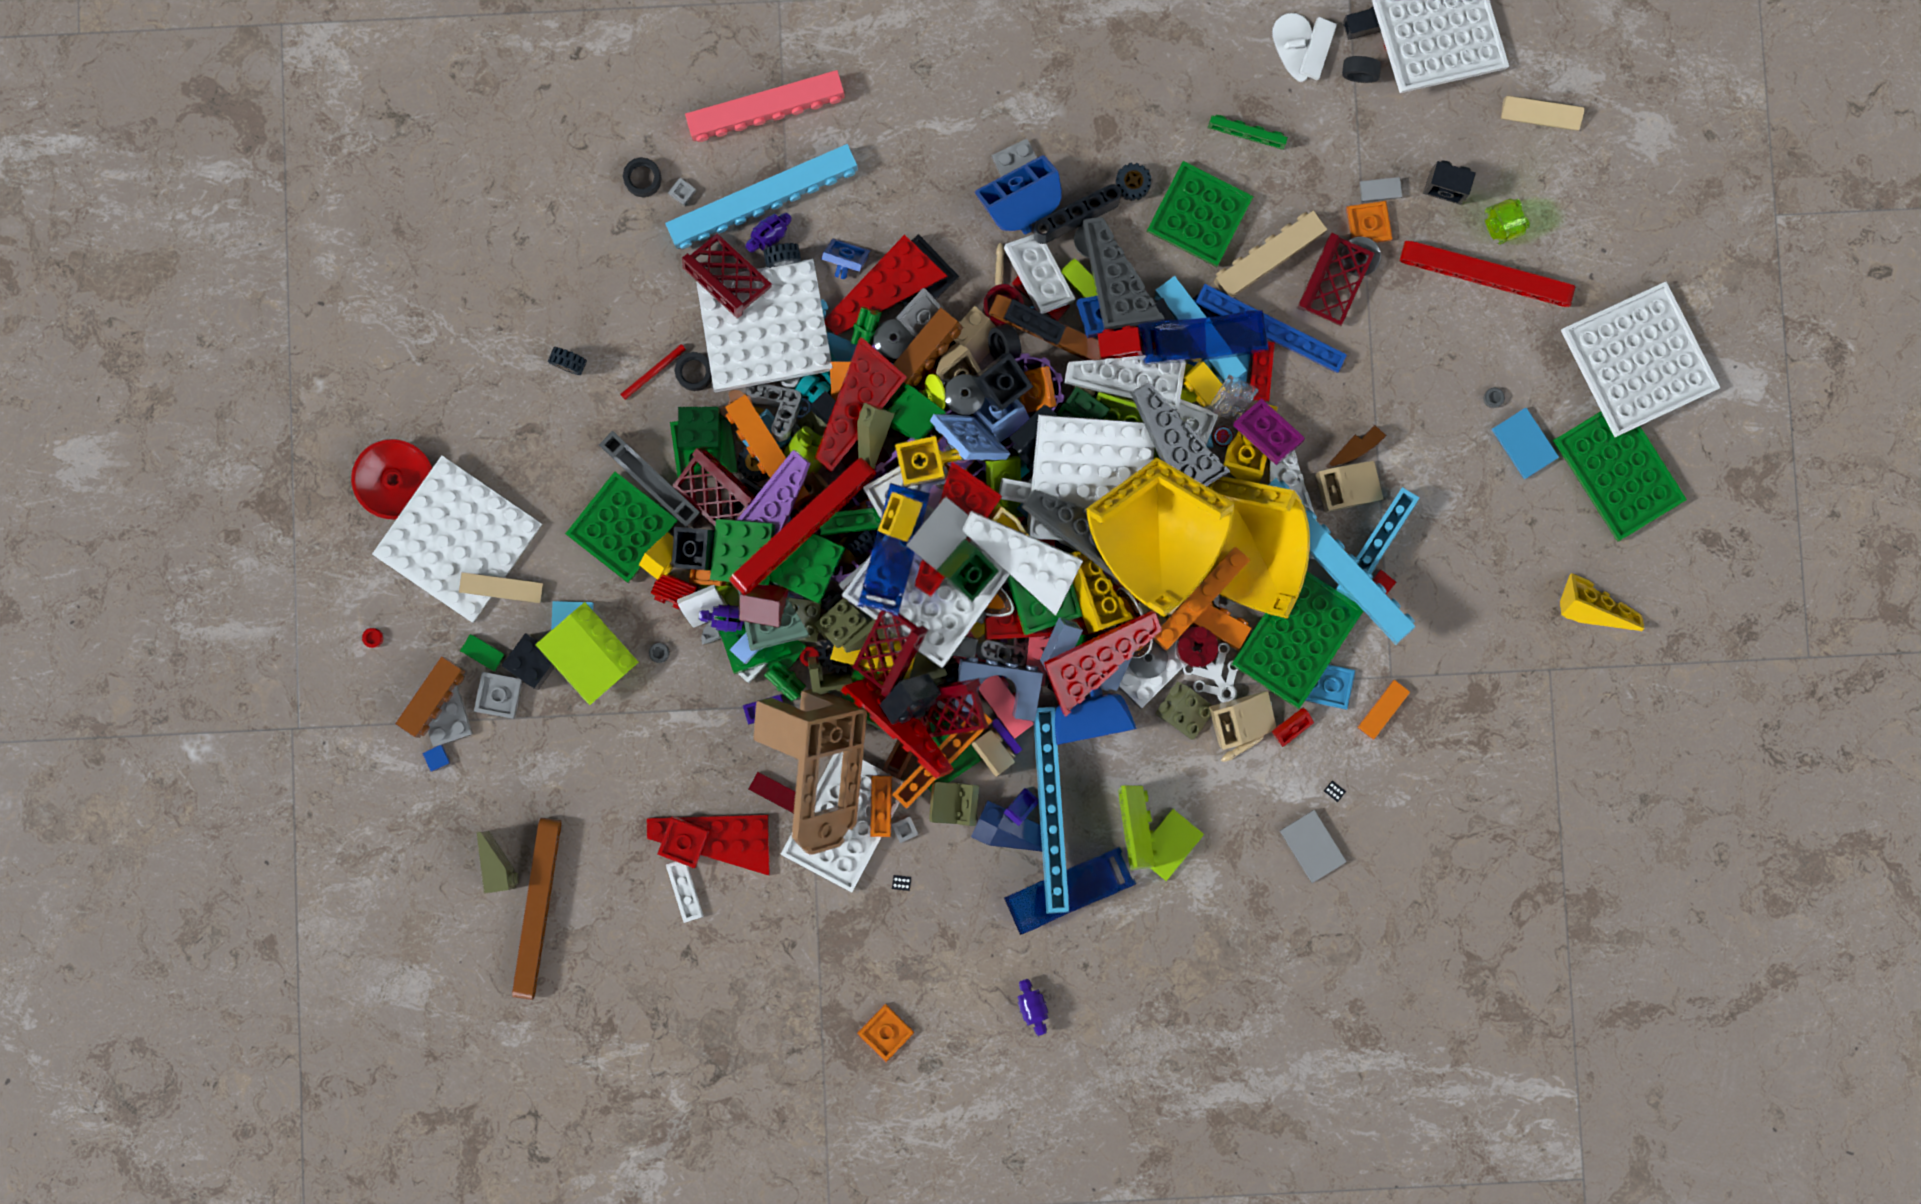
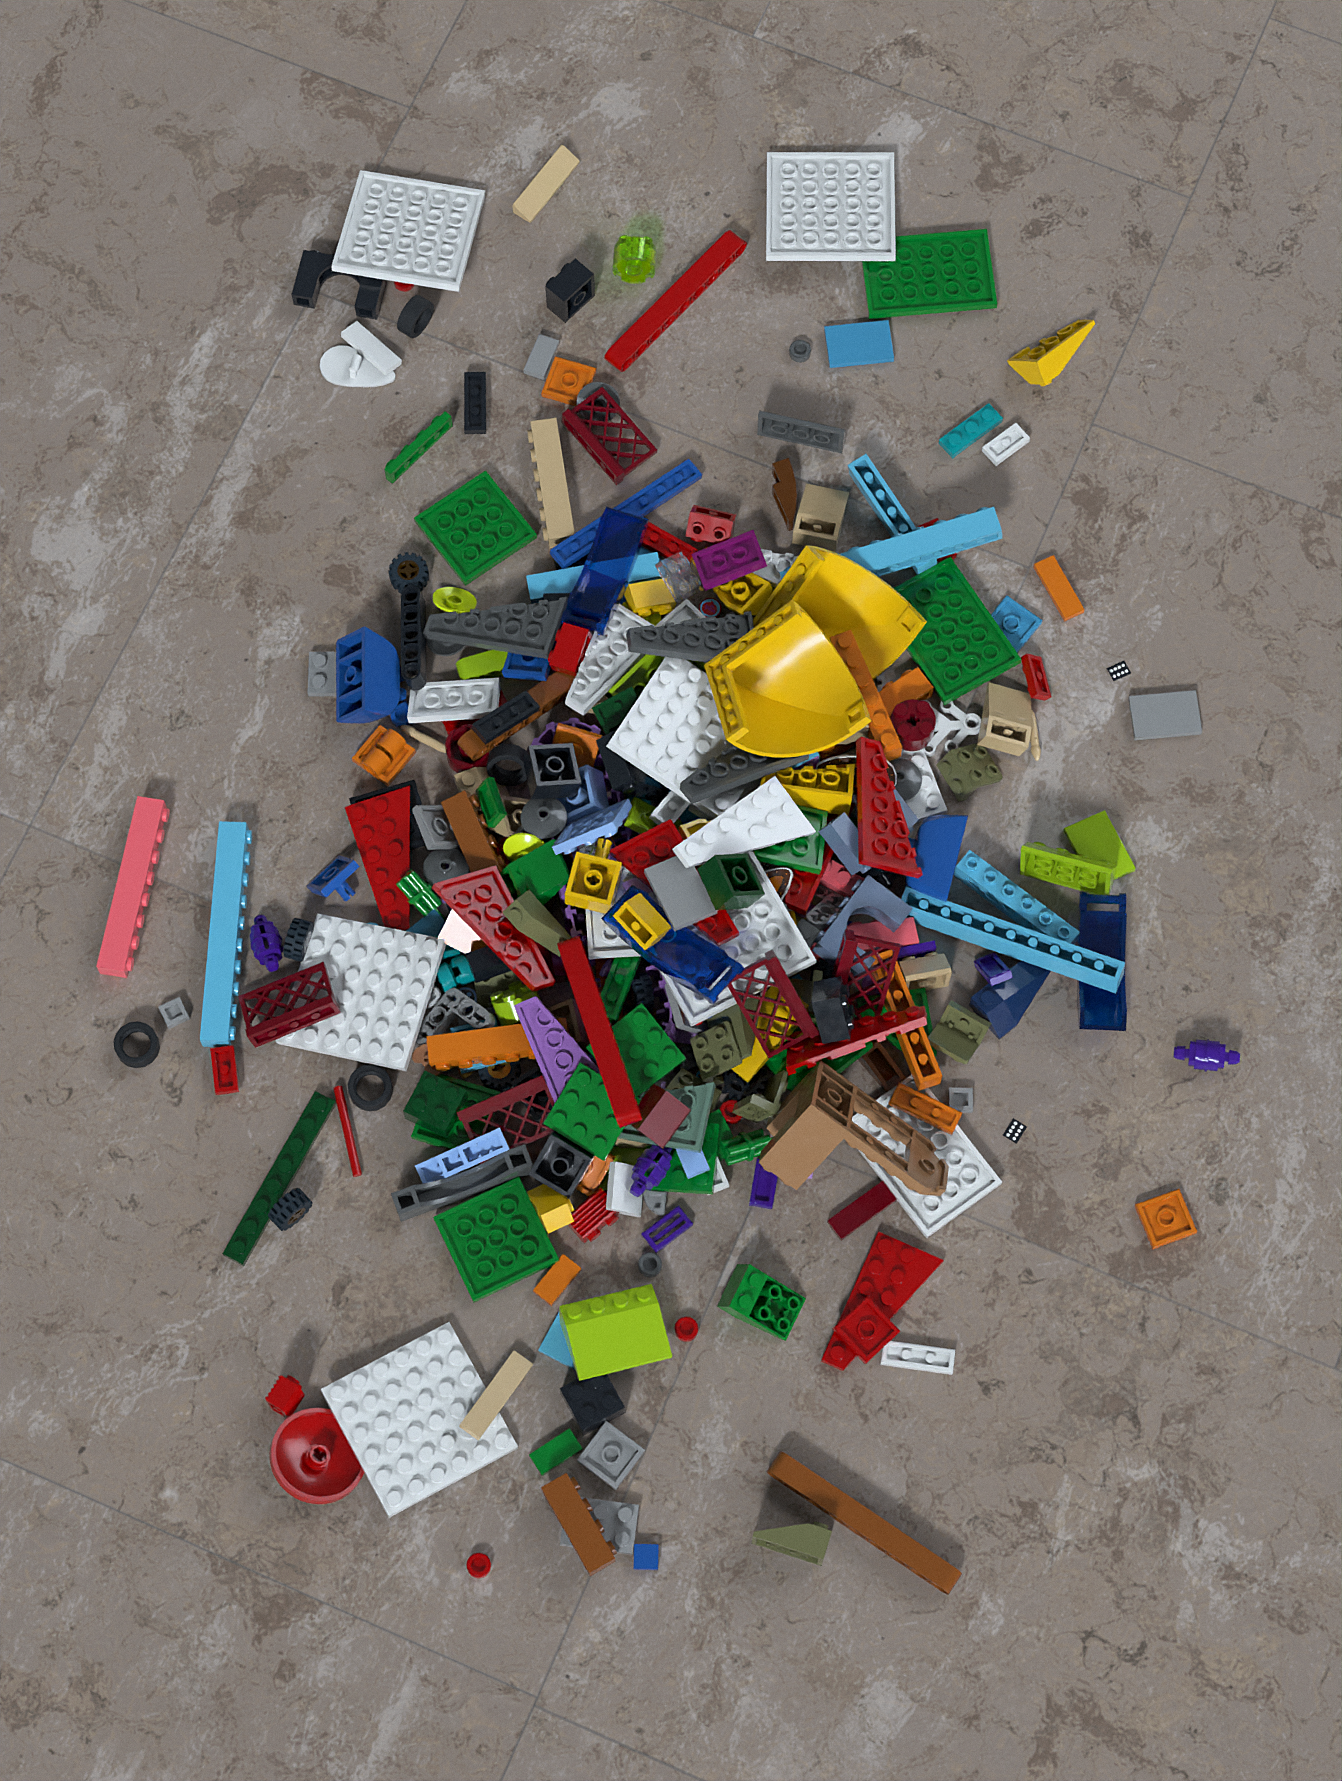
camera: 65 degrees left, 15 degrees down
(423, 432) = (285, 1396): none -> red brick
(592, 340) = (279, 1178): none -> dark green plate
(613, 588) = (557, 1280): none -> orange tile
(622, 704) = (686, 1329): none -> red tile
(654, 254) = (224, 1070): none -> red plate
(668, 469) = (462, 1156): none -> light blue slope
(669, 751) = (761, 1301): none -> green slope
(708, 659) = (683, 1217): none -> dark purple tile
(960, 346) = (491, 802): none -> green tile
(968, 242) = (384, 754): none -> orange plate
(1010, 236) = (399, 716): none -> blue tile
(1087, 799) = (1012, 899): none -> medium azure brick
(1127, 229) = (454, 600): none -> neon yellow dish
(1295, 401) = (710, 525): none -> red brick
(1310, 157) = (475, 402): none -> black plate
(1417, 434) = (801, 431): none -> dark grey slope
(1491, 572) = (970, 430): none -> teal plate
(1492, 607) = (1005, 444): none -> white plate

